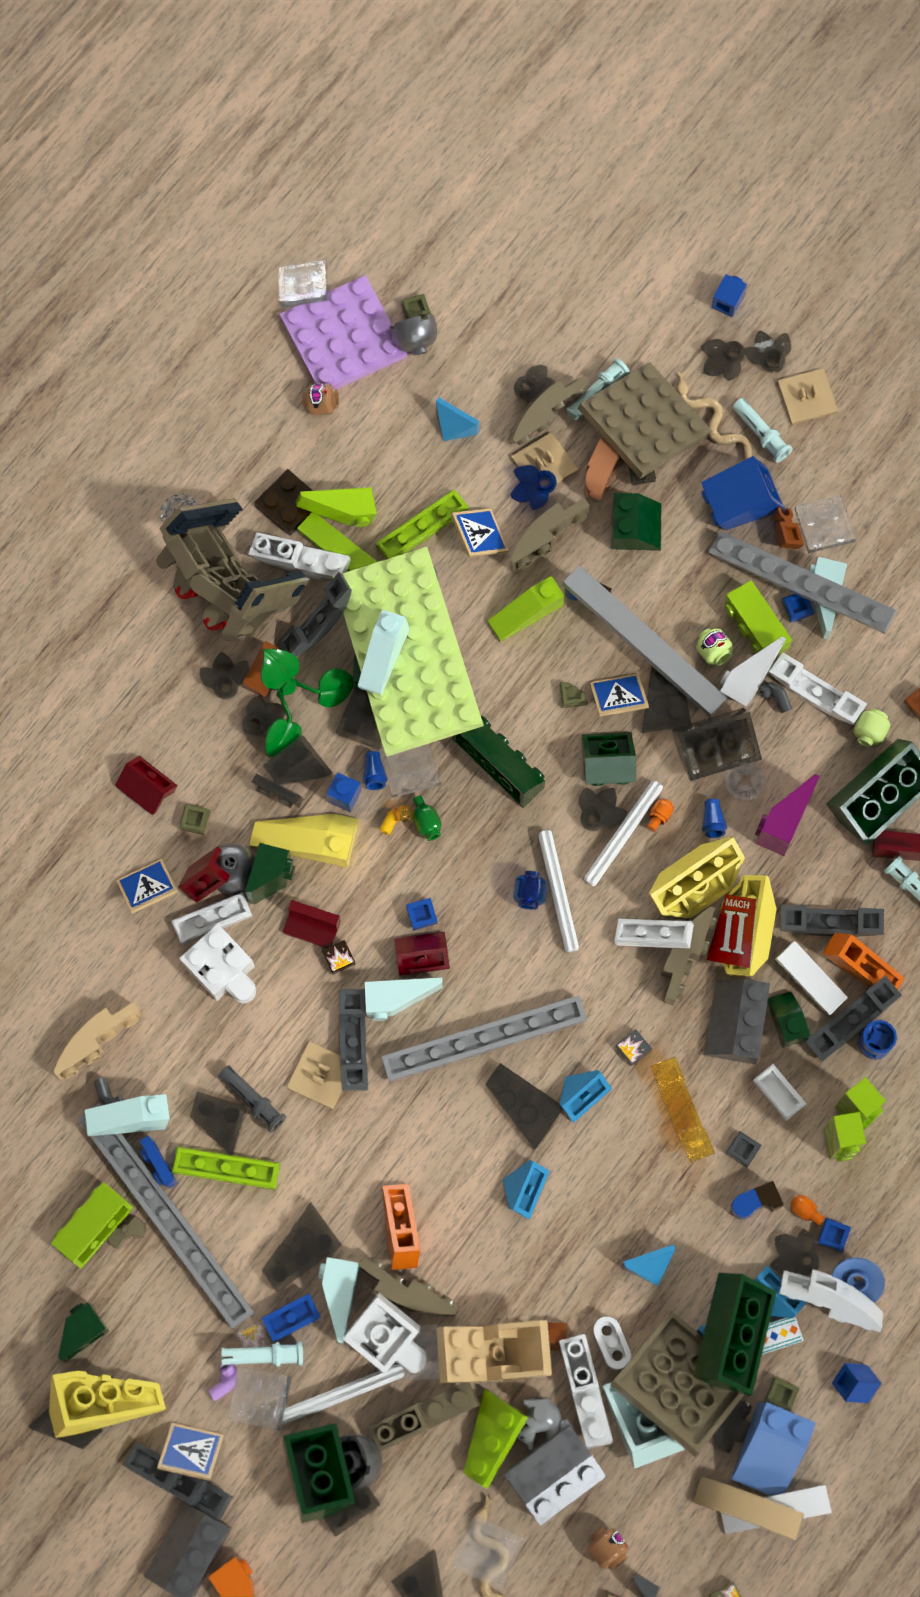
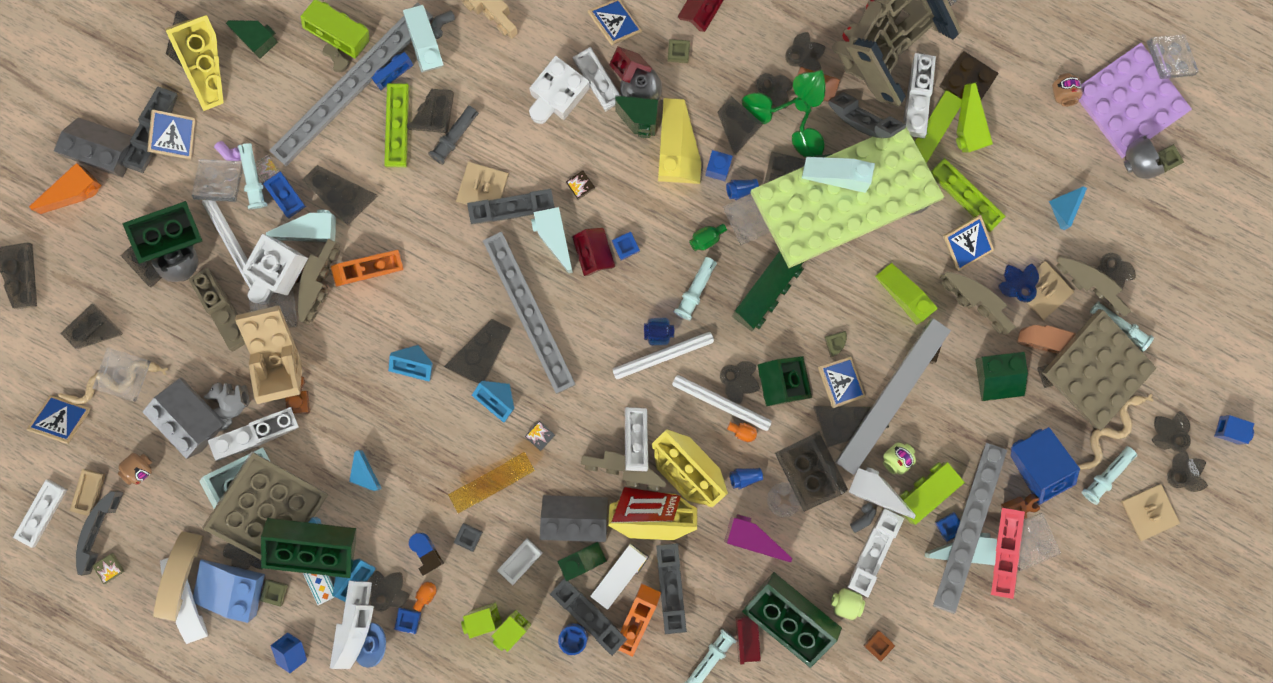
camera: 80 degrees right, 10 degrees up
(286, 797) = (713, 105): clear smoke plate -> none
(311, 924) = (603, 159): dark red panel -> none
(397, 814) = (706, 211): arm -> none
(492, 1437) = (210, 366): lime wing -> none
(495, 847) = (691, 298): none -> light aqua pin
(612, 1343) = (297, 450): white plate -> none
(835, 548) = (1008, 553): none -> coral slope

